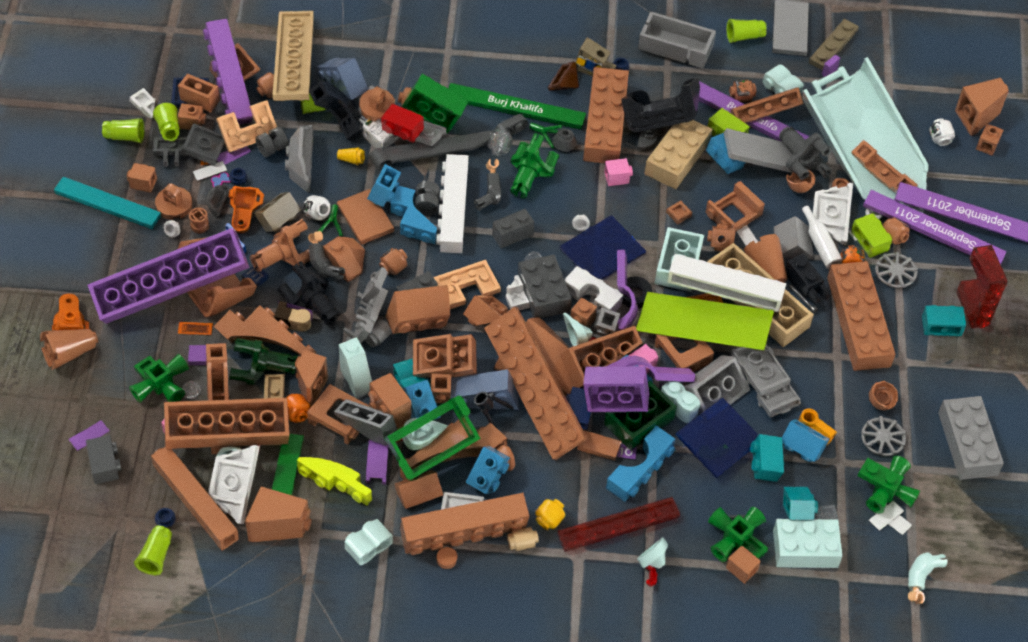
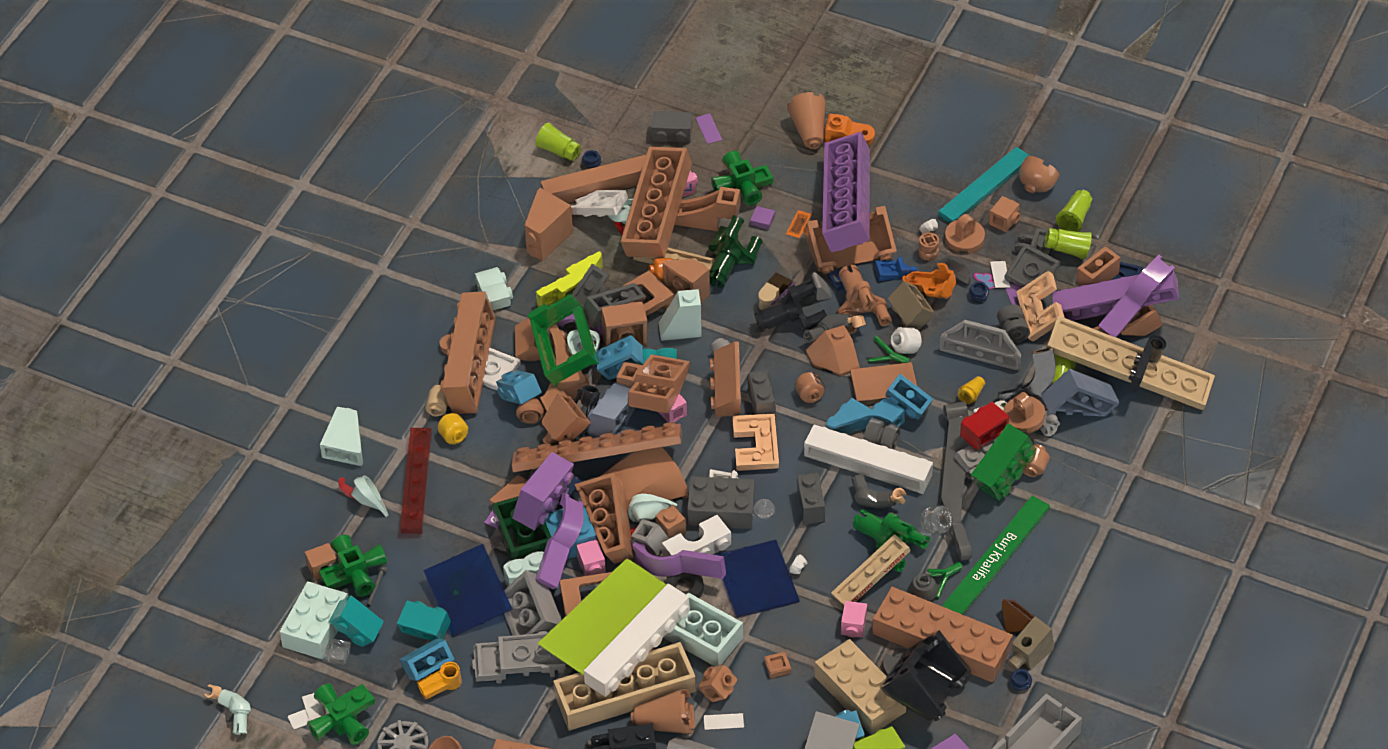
camera: 115 degrees right, 5 degrees down
(92, 162) = (1037, 176): none -> nougat cylinder
(144, 102) = (1115, 239): white slope -> none
(190, 114) = (1069, 268): nougat brick -> none
(243, 50) = (1135, 297): none -> medium lavender piece
(260, 326) = (758, 267): nougat arch -> none
(271, 289) = (822, 288): none -> light grey slope
(287, 464) = (611, 256): green tile -> none
(297, 38) = (1151, 353): none -> black plate
(338, 453) = (590, 284): none -> dark grey hinge
(372, 300) = (763, 354): light grey piece -> none
(484, 310) = (710, 447): nougat slope -> none
(514, 418) = (563, 420): none -> nougat torso
(572, 167) = (871, 570): none -> tan plate
(597, 601) = (342, 438): none -> light aqua slope
(626, 480) = (459, 499): dark azure arch -> none
(743, 200) = (761, 732): nougat window -> none

